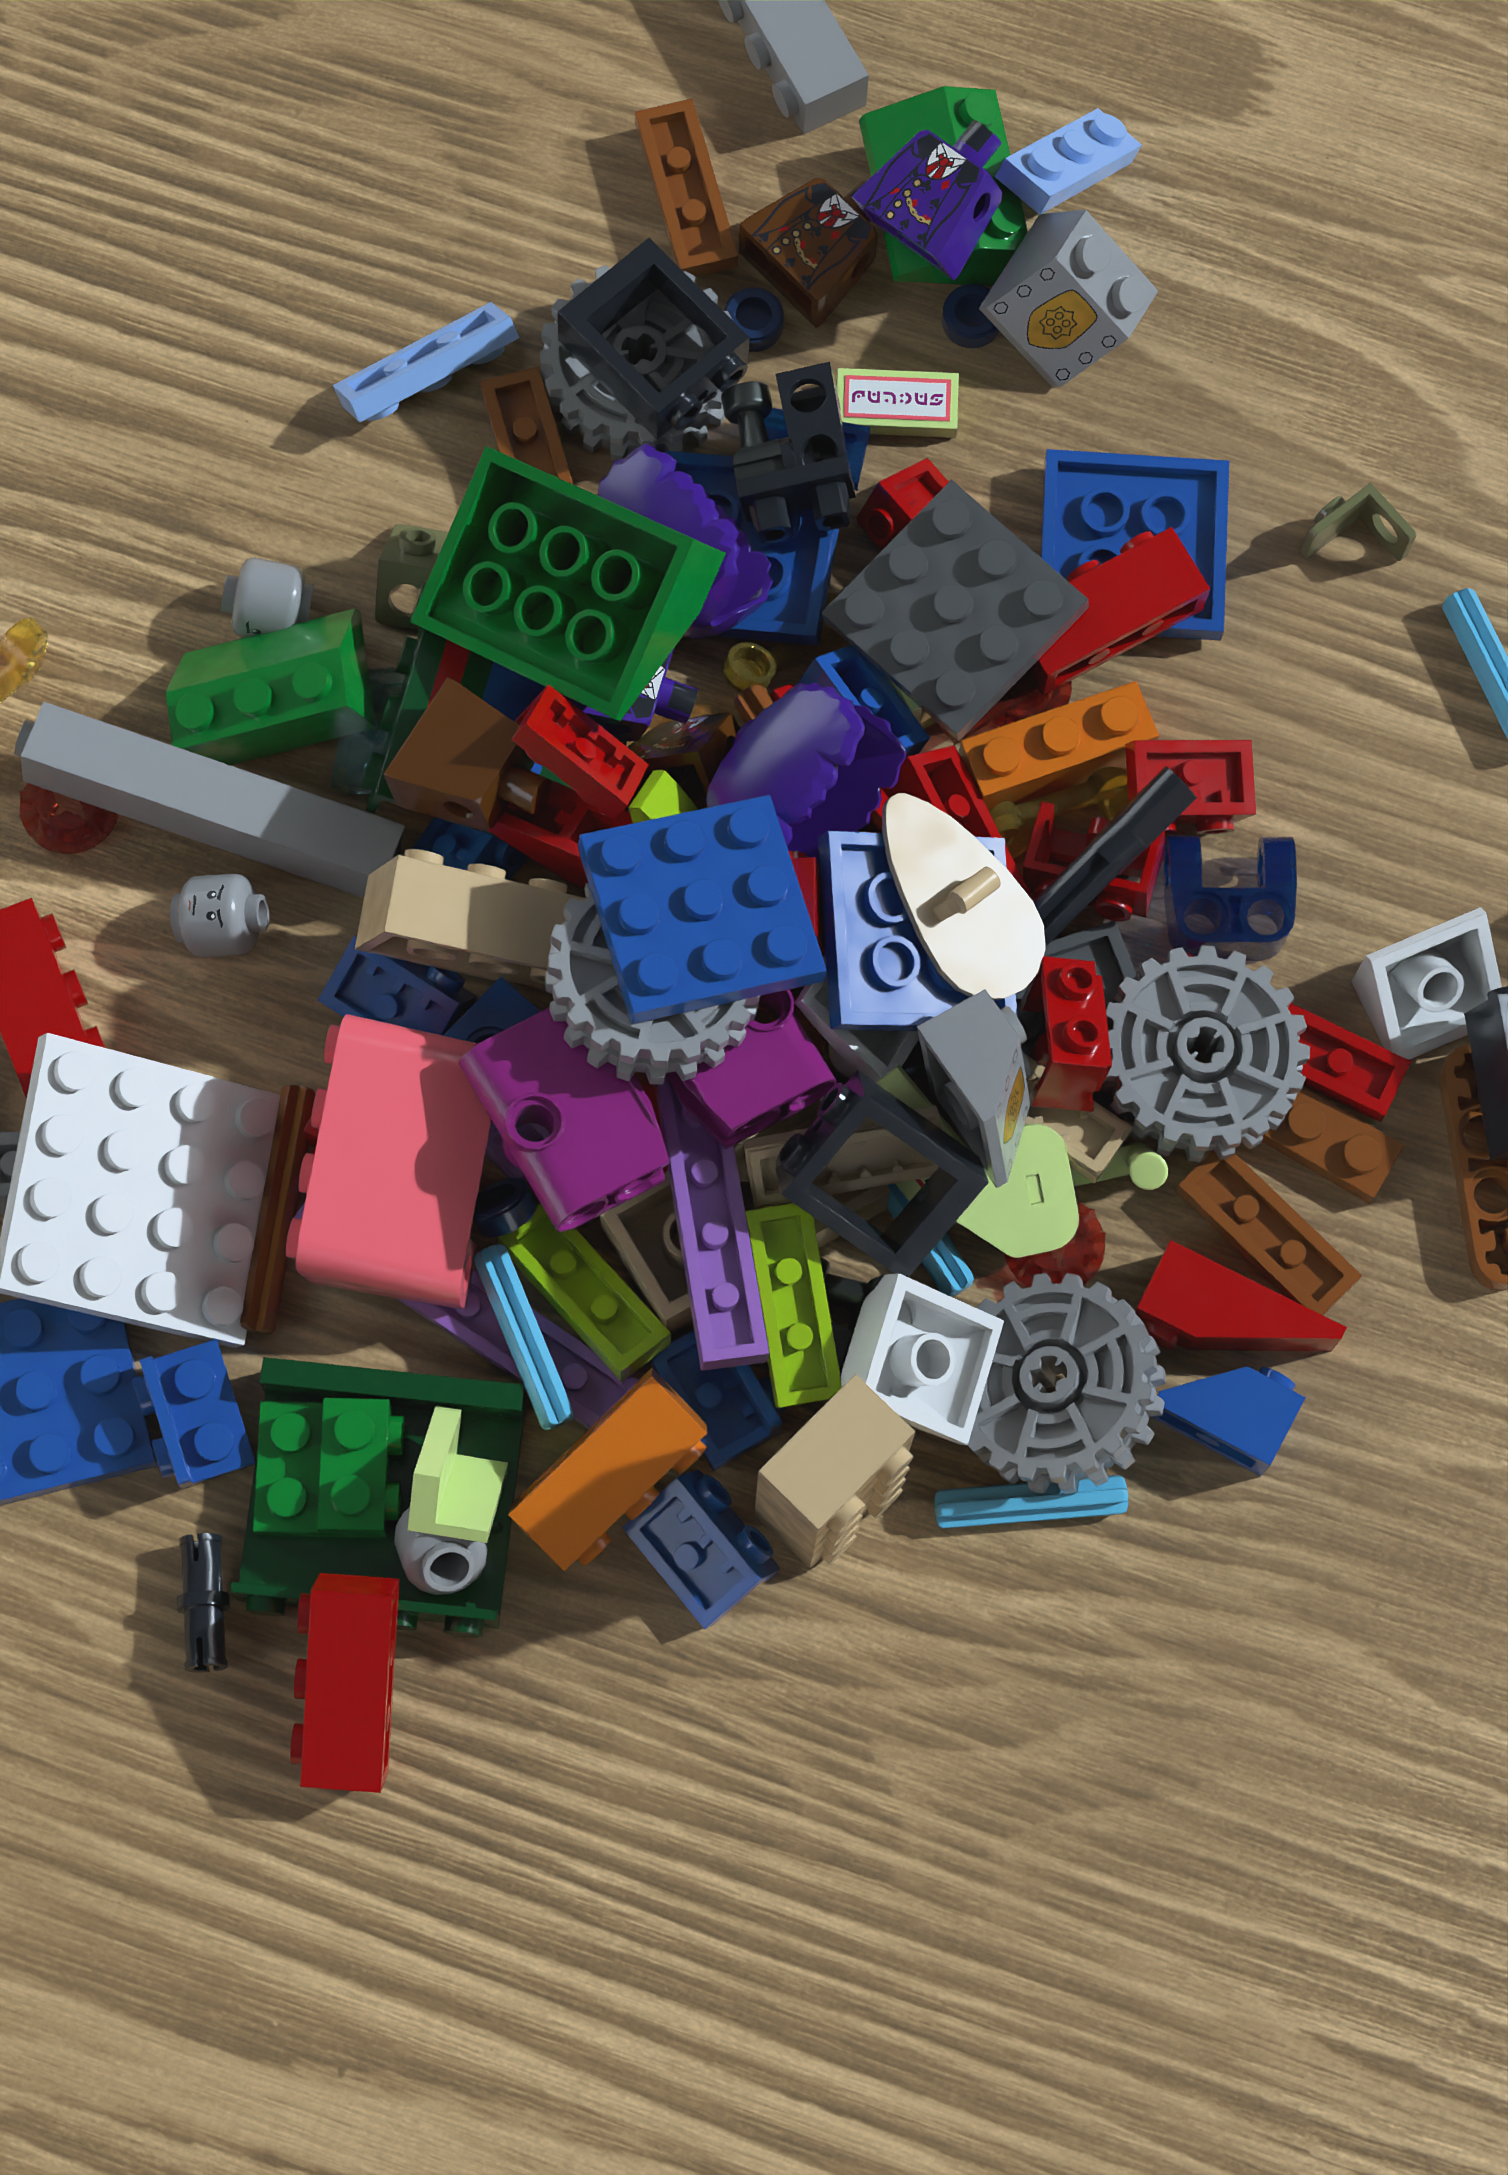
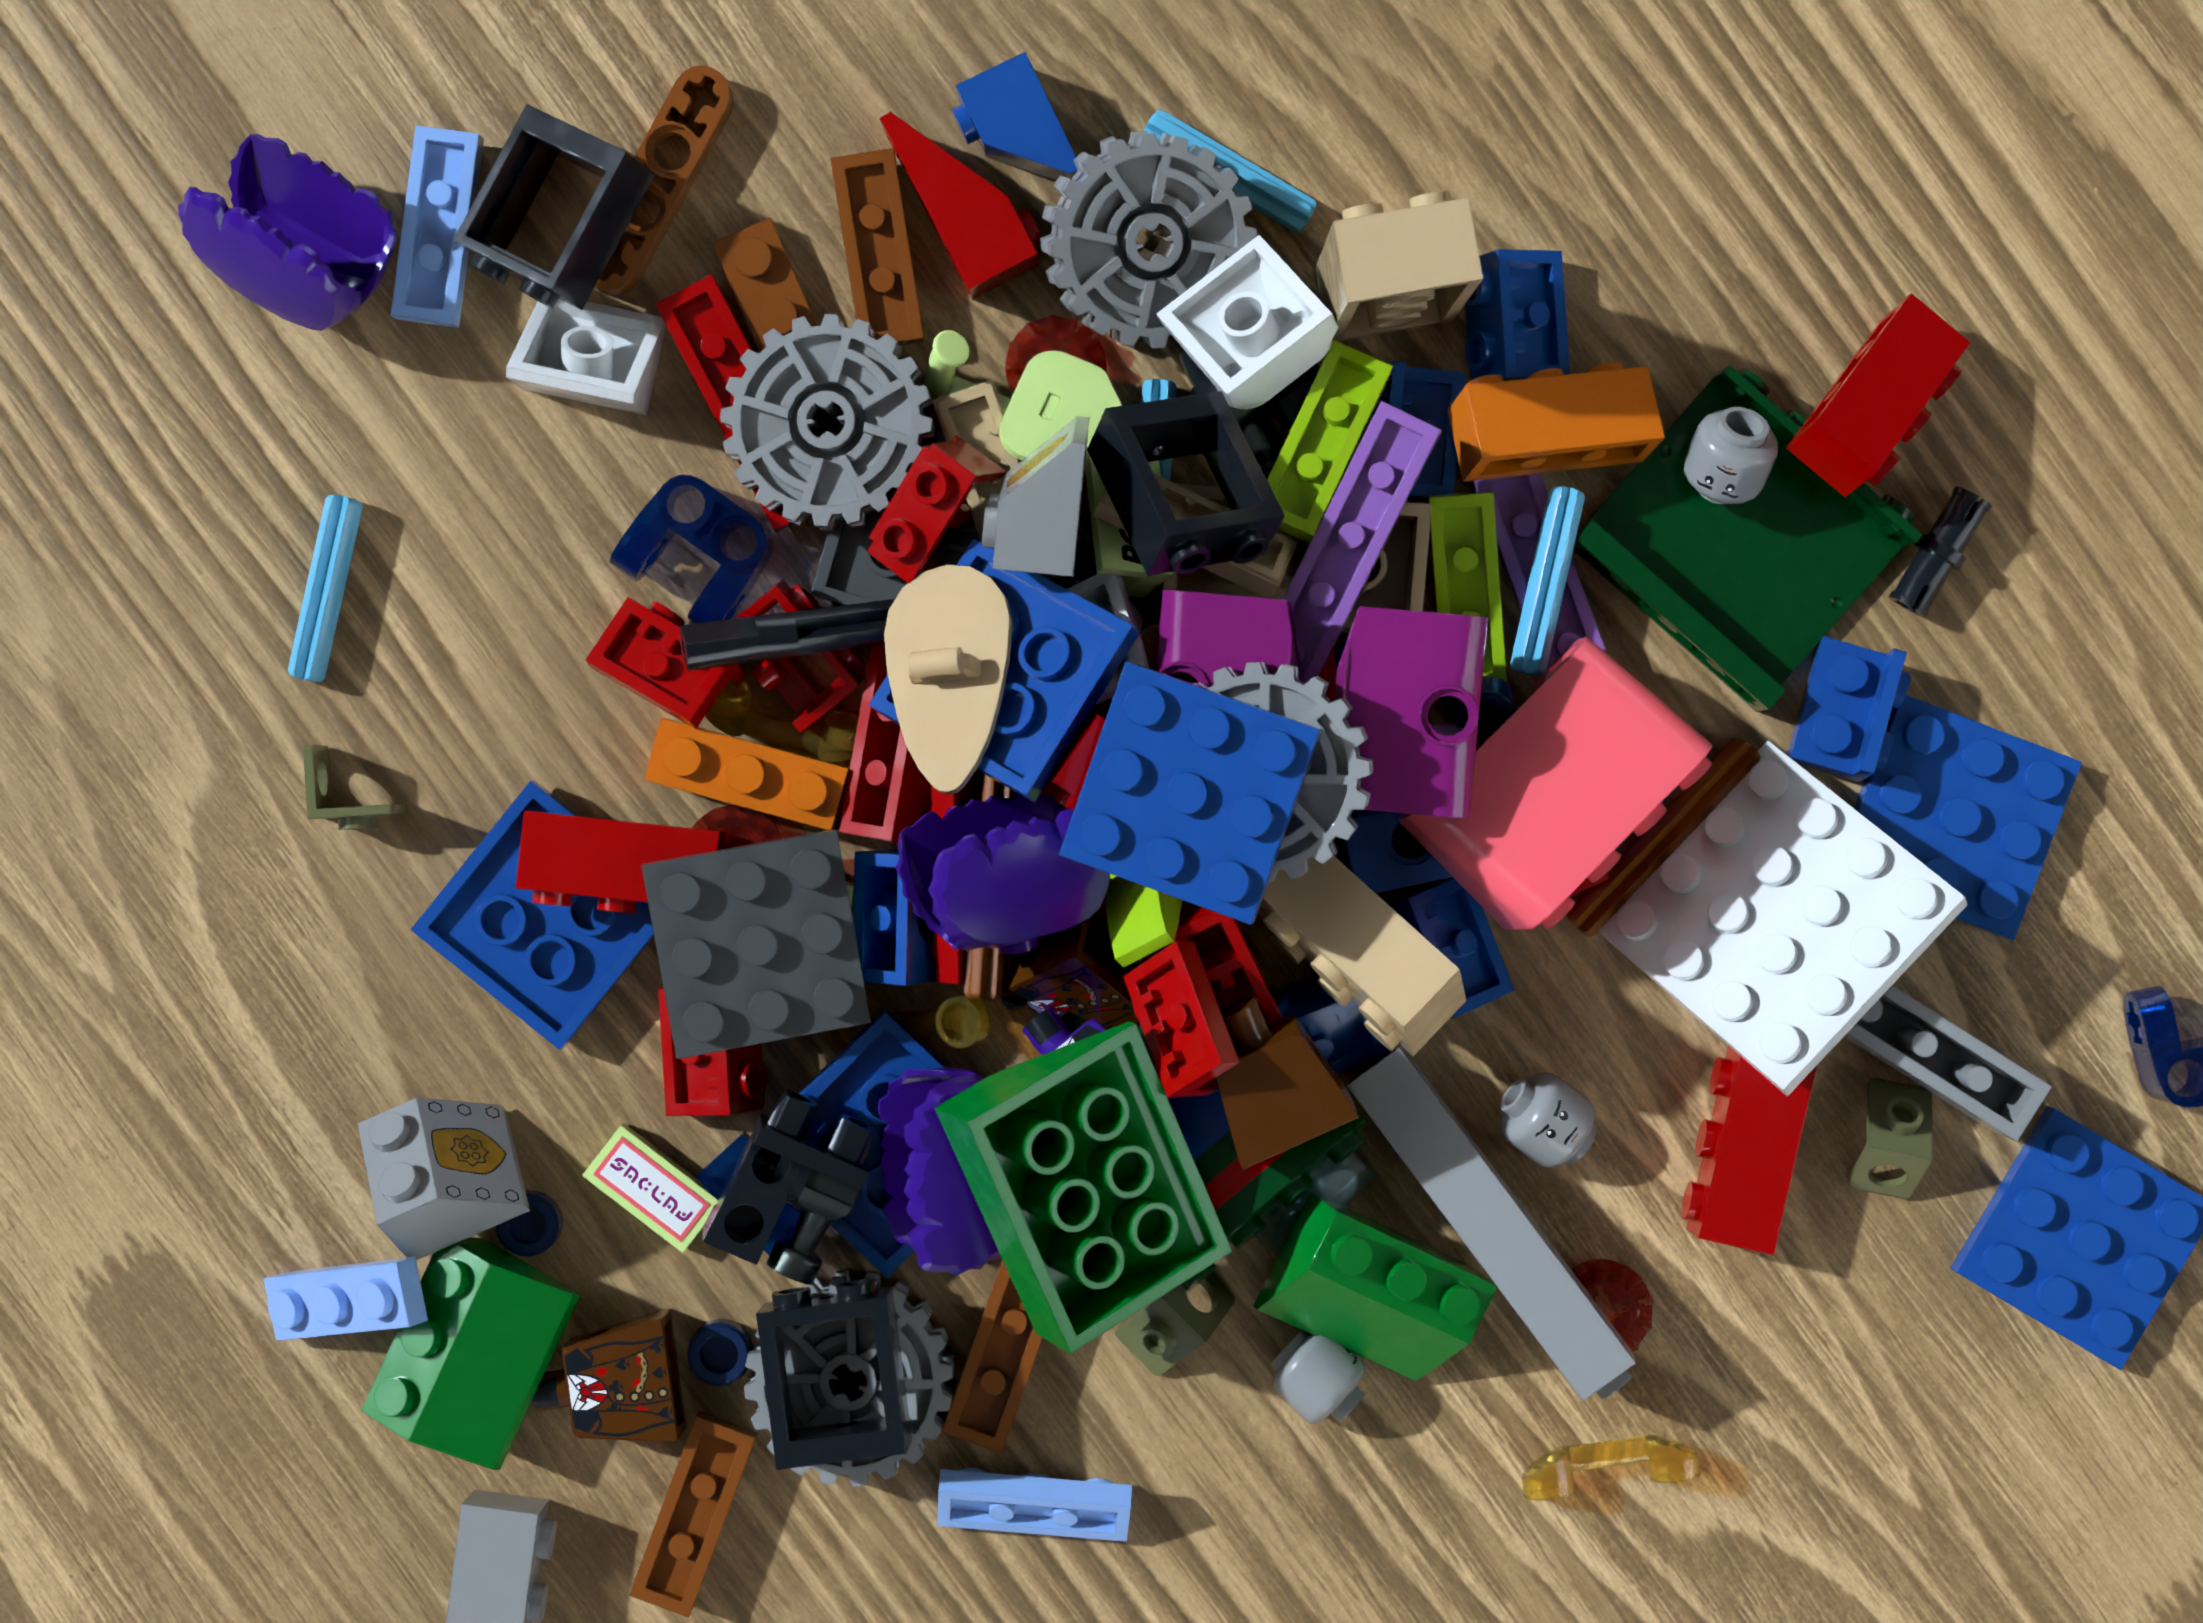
camera: 140 degrees left, 15 degrees up
(327, 1468) = (1772, 588): green plate -> none
(453, 1491) = (1689, 491): yellowish green panel -> none
(936, 196) = (495, 1334): dark purple torso -> none

